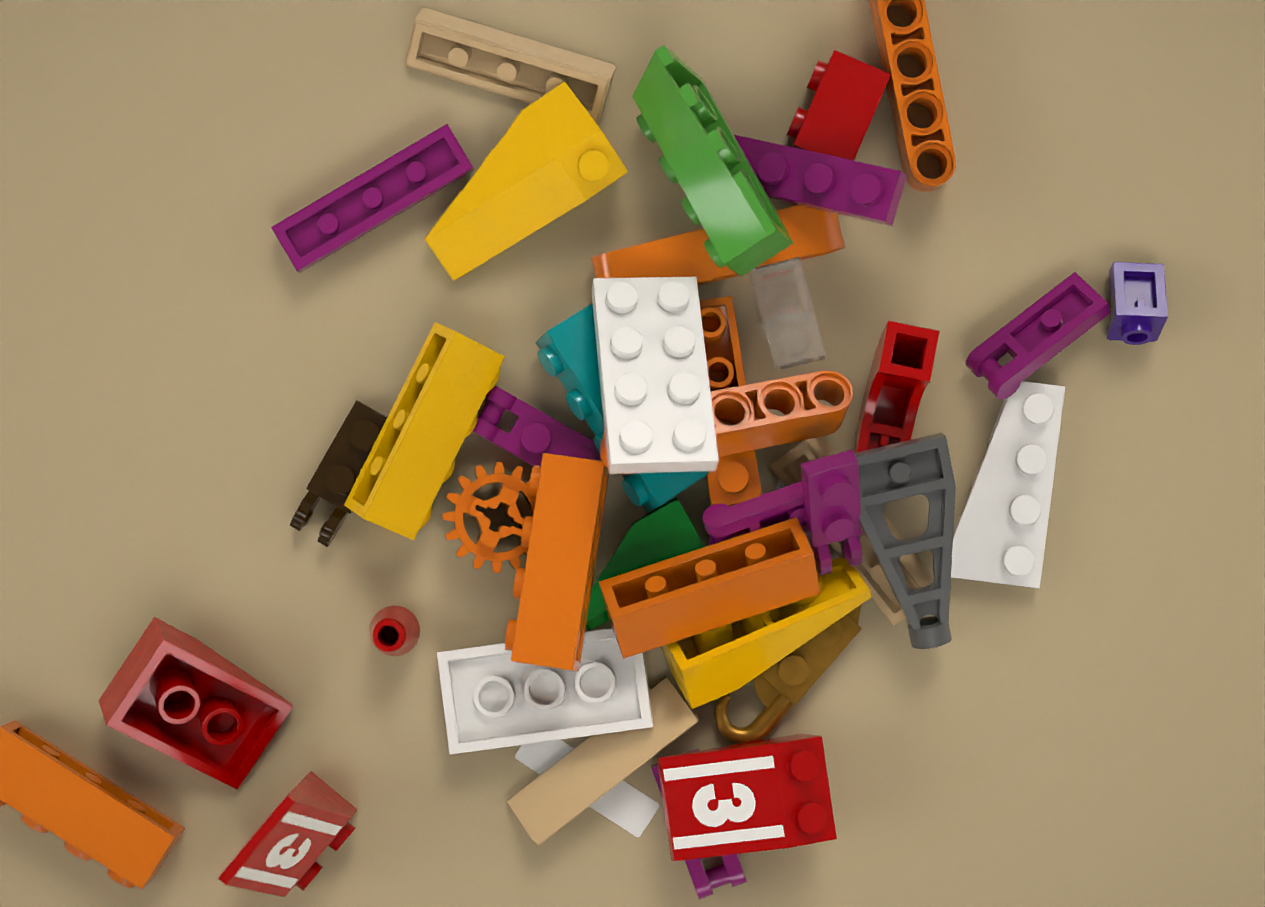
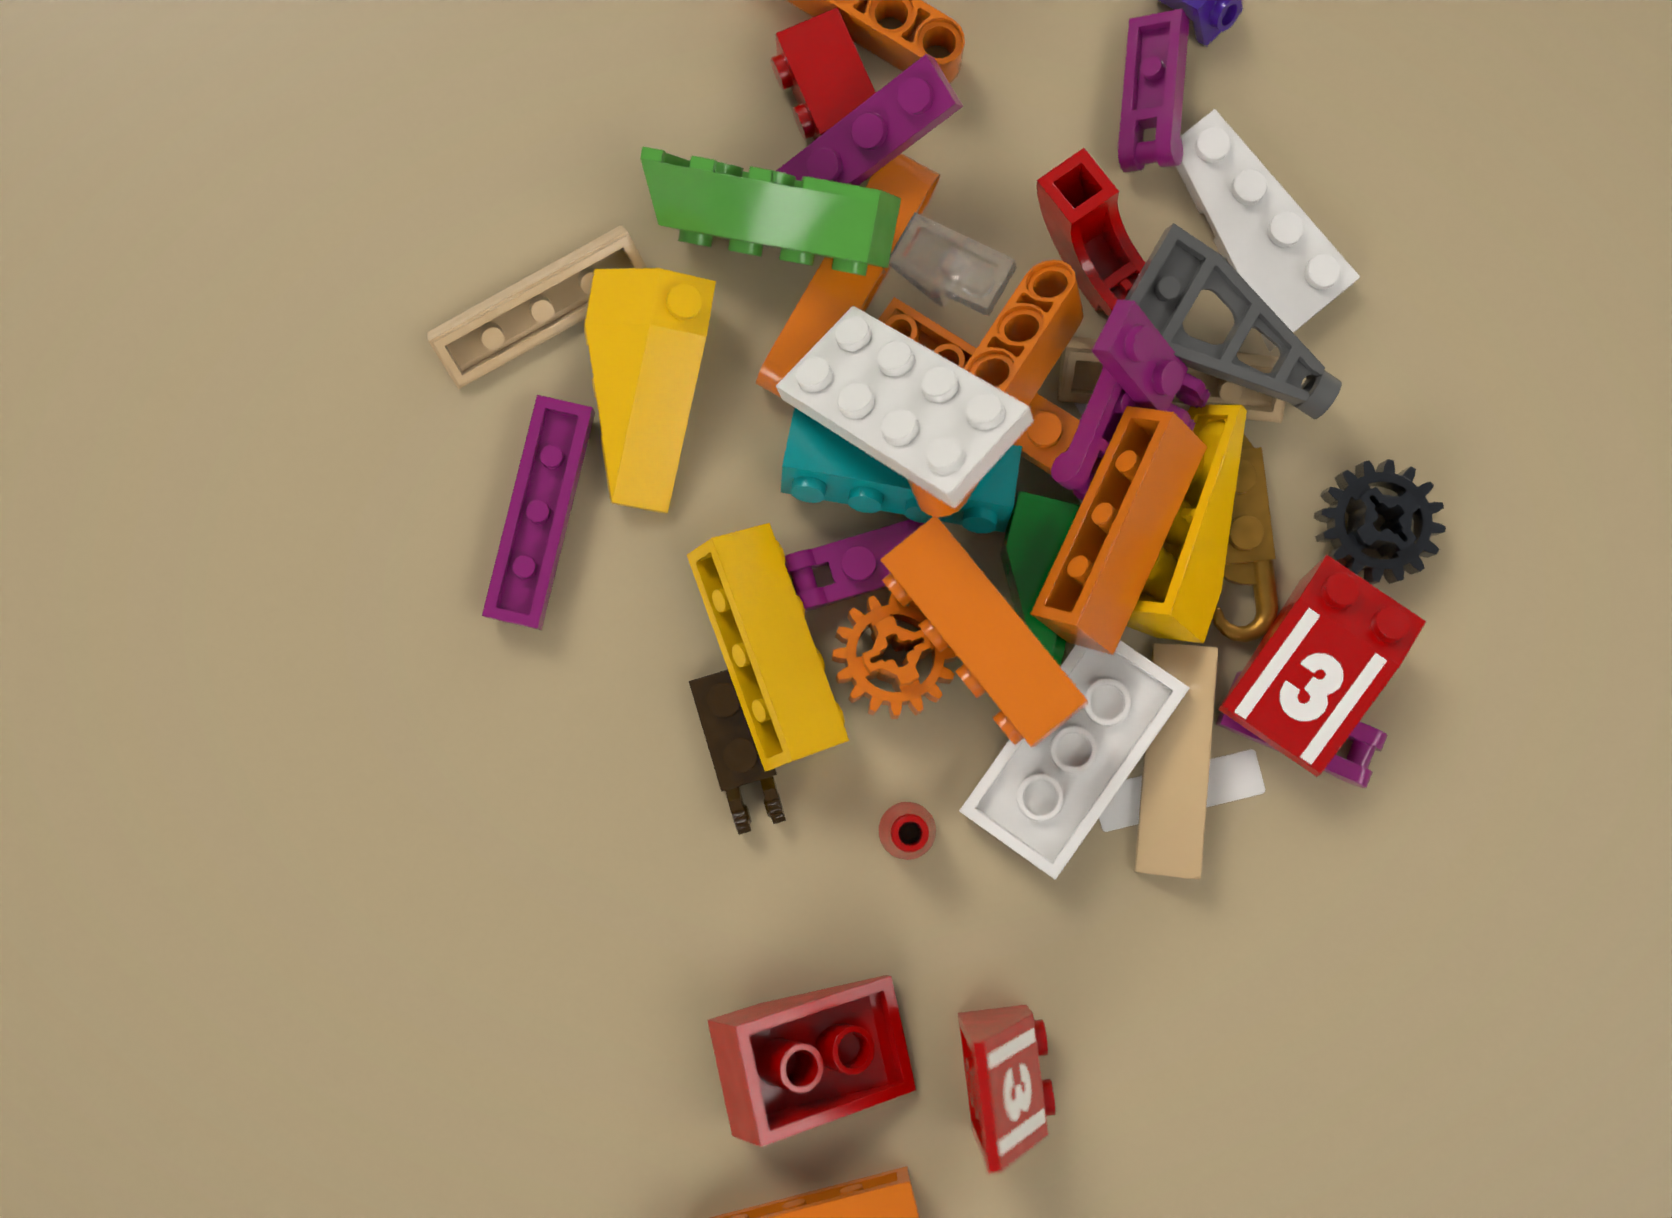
camera: 50 degrees left, 5 degrees down
(904, 753) = (1363, 507): none -> black gear

